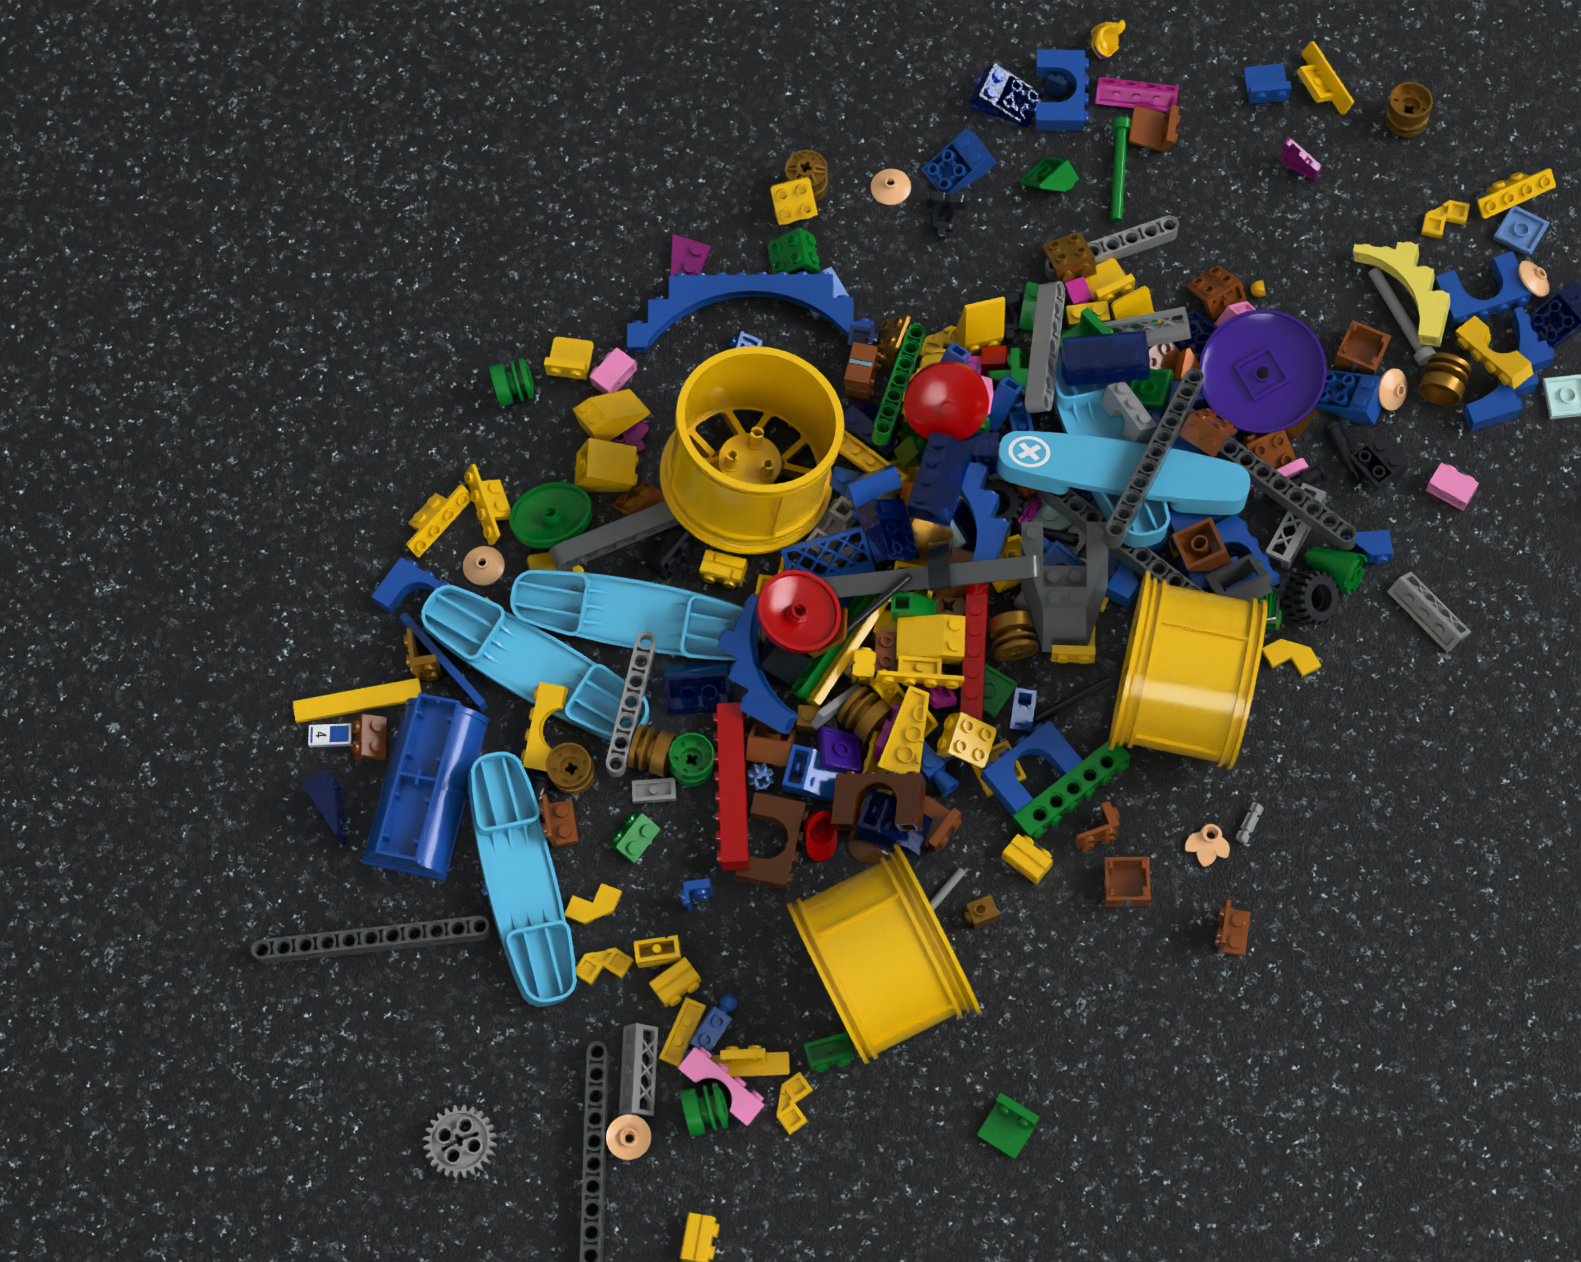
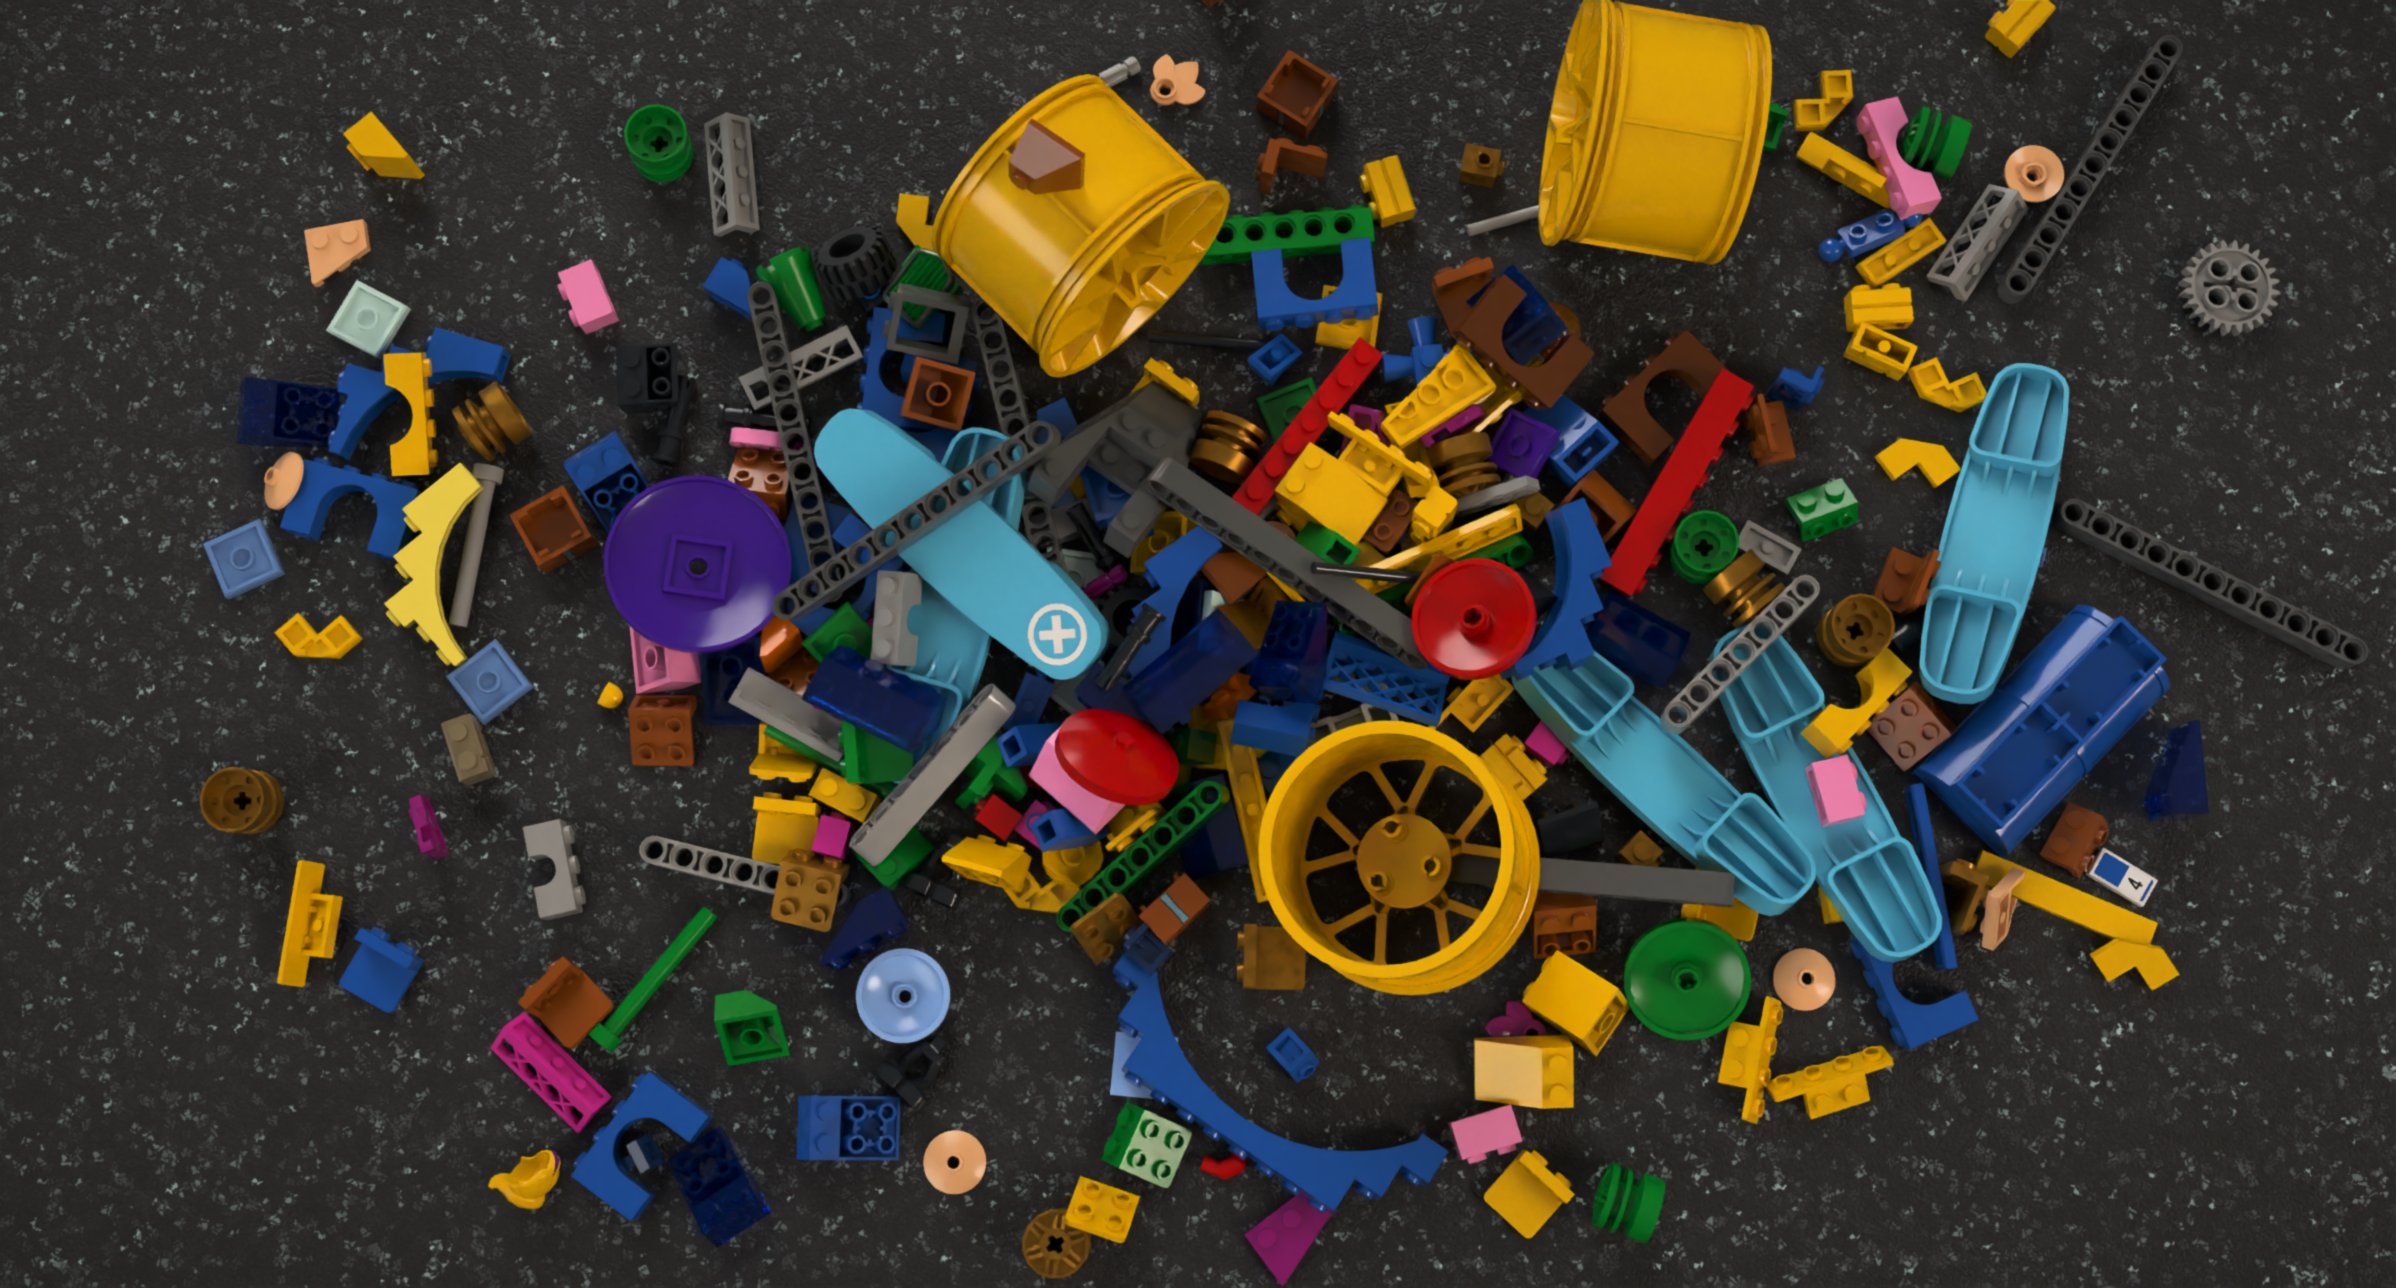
camera: 155 degrees left, 10 degrees up
(307, 687) = (2122, 955): none -> yellow tile
(393, 664) = (1999, 909): none -> light nougat wing
(502, 736) = (1911, 726): none -> dark orange bracket
(527, 665) = (1835, 790): none -> bright pink brick
(619, 565) = (1640, 851): none -> pearl gold brick
(695, 859) = (1769, 432): none -> dark orange bracket
(713, 589) = (1546, 746): none -> dark pink brick
(747, 268) = (1223, 1169): none -> red arm
(760, 776) = (1632, 480): medium blue gear -> none
(820, 835) = (1607, 368): red piece -> none
(939, 565) = (1264, 563): black slope -> none
(966, 739) = (1373, 352): yellow bracket -> none
(980, 229) = (880, 993): none -> light blue dish
(983, 478) = (1138, 634): none -> black pin
(1020, 265) = (869, 923): none -> clear blue slope
(1207, 431) = (817, 531): dark orange bracket -> none
(1217, 634) = (1045, 162): none -> dark orange slope
(1226, 197) = (562, 894): none -> light grey arch
(1312, 212) = (468, 749): none -> dark tan brick
(1331, 256) = (489, 681): none -> medium blue tile
(1392, 389) = (559, 453): light nougat dish -> none
(1485, 583) = (654, 129): none -> green wheel
(1514, 191) = (210, 610): yellow bracket -> none

